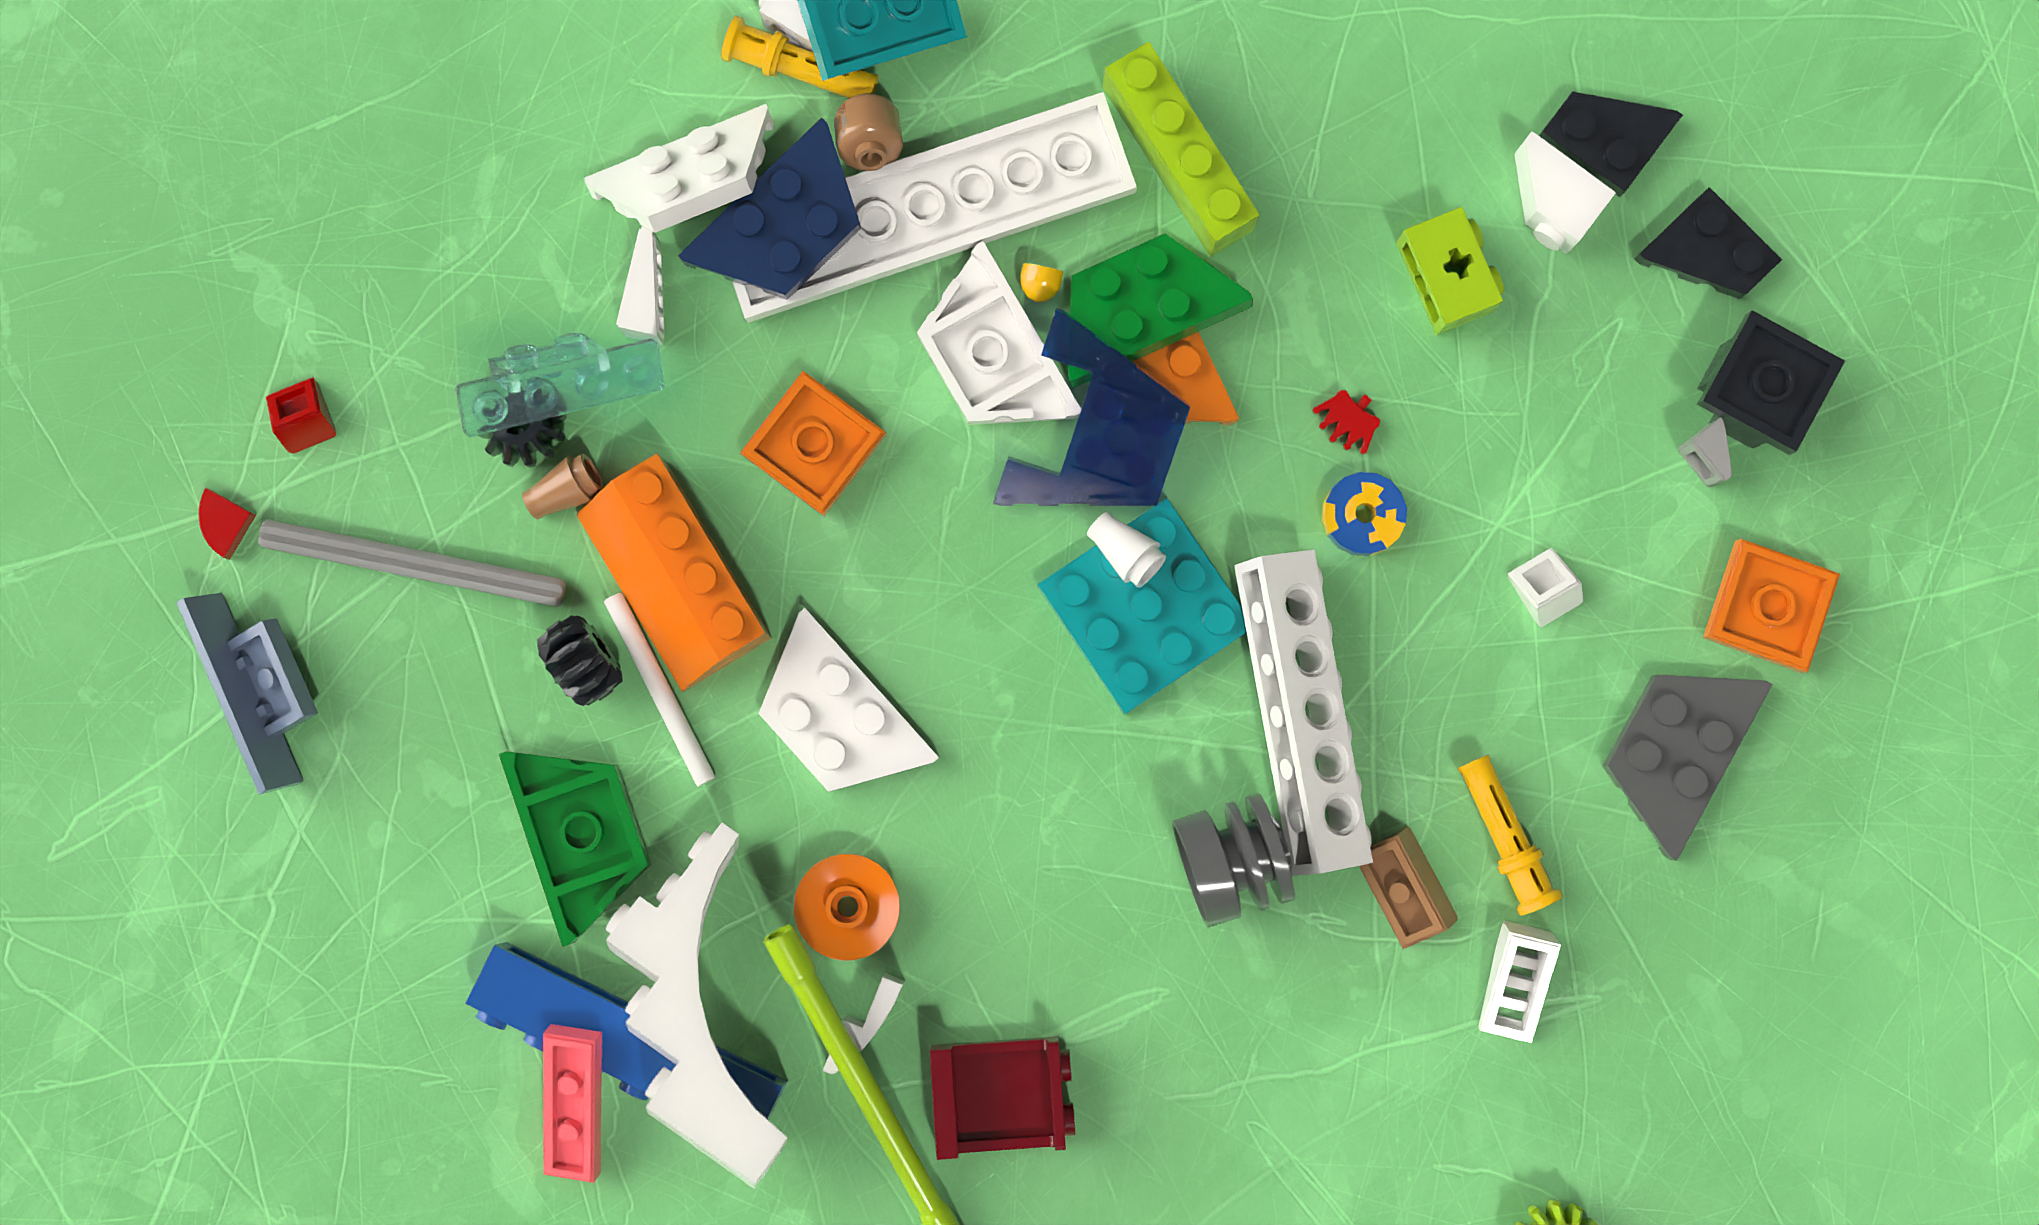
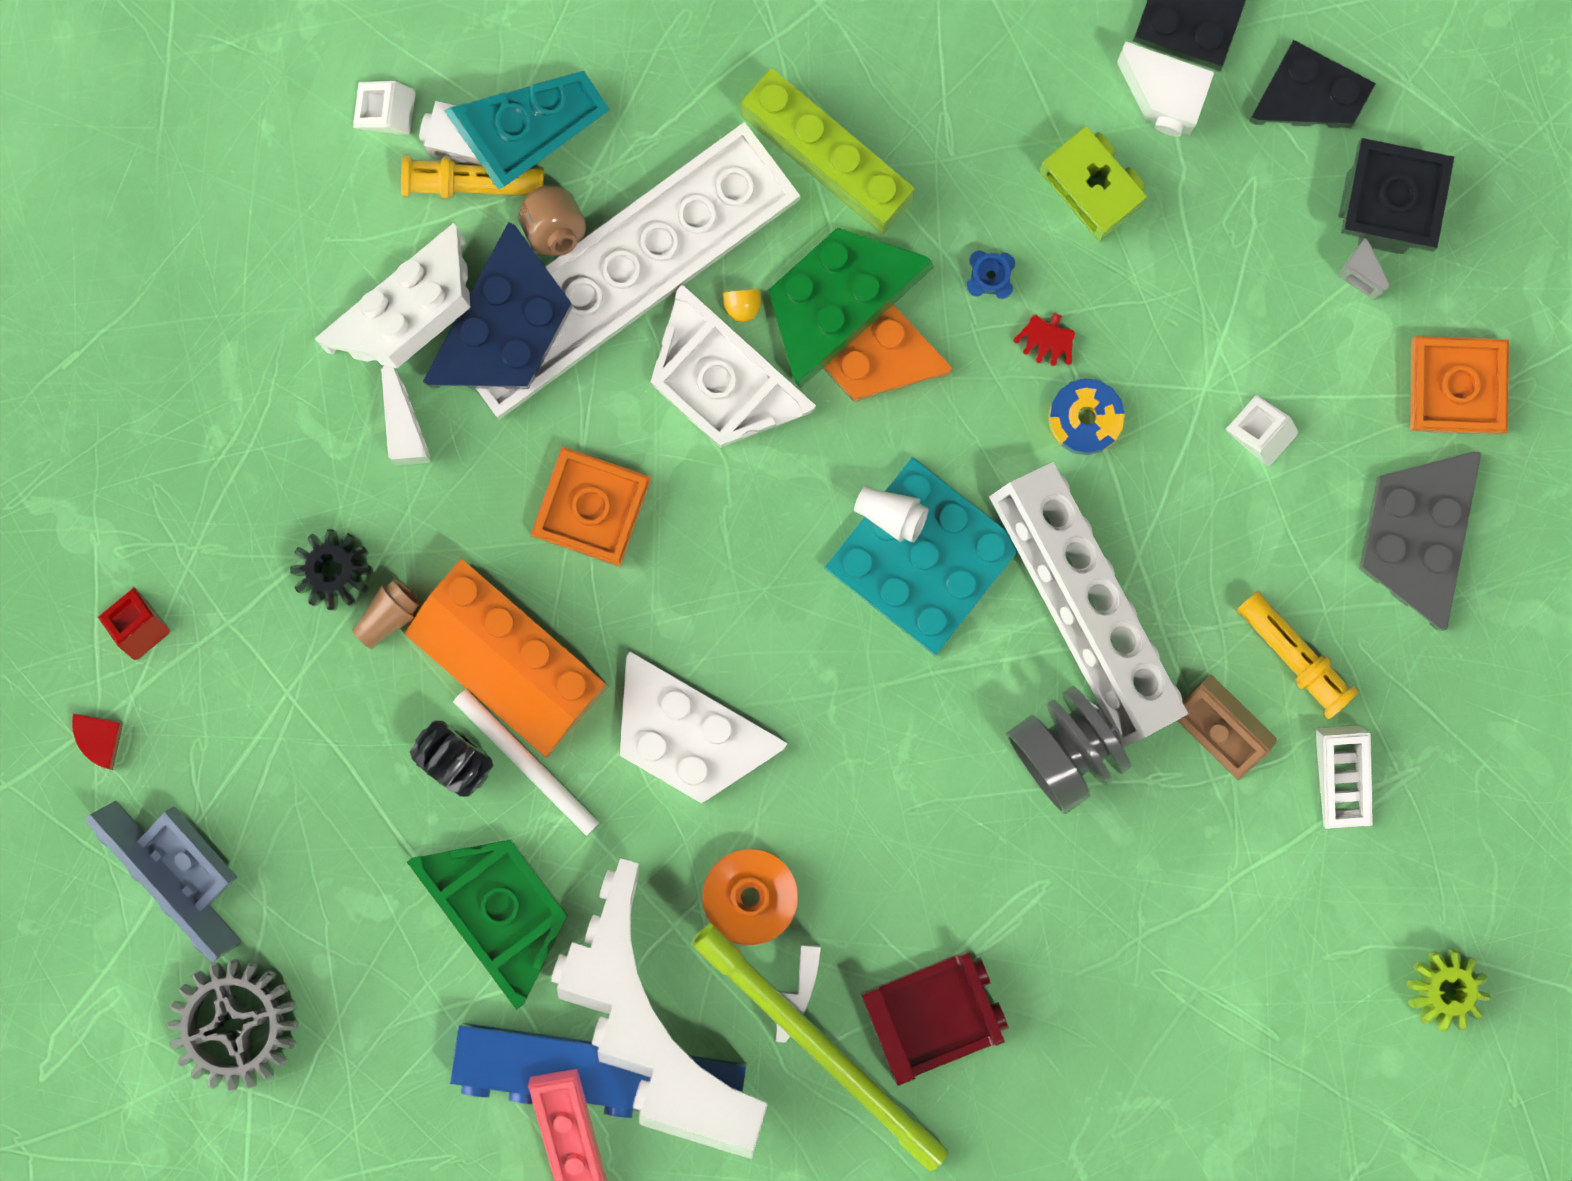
camera: 20 degrees left, 0 degrees up
(258, 886) = (239, 1047): none -> light grey gear
(412, 563) = (275, 721): light grey axle -> none
(556, 380) = (353, 522): clear light blue bracket -> none
(1120, 438) = (856, 417): clear blue wing -> none
(1307, 318) = (981, 264): none -> blue plate

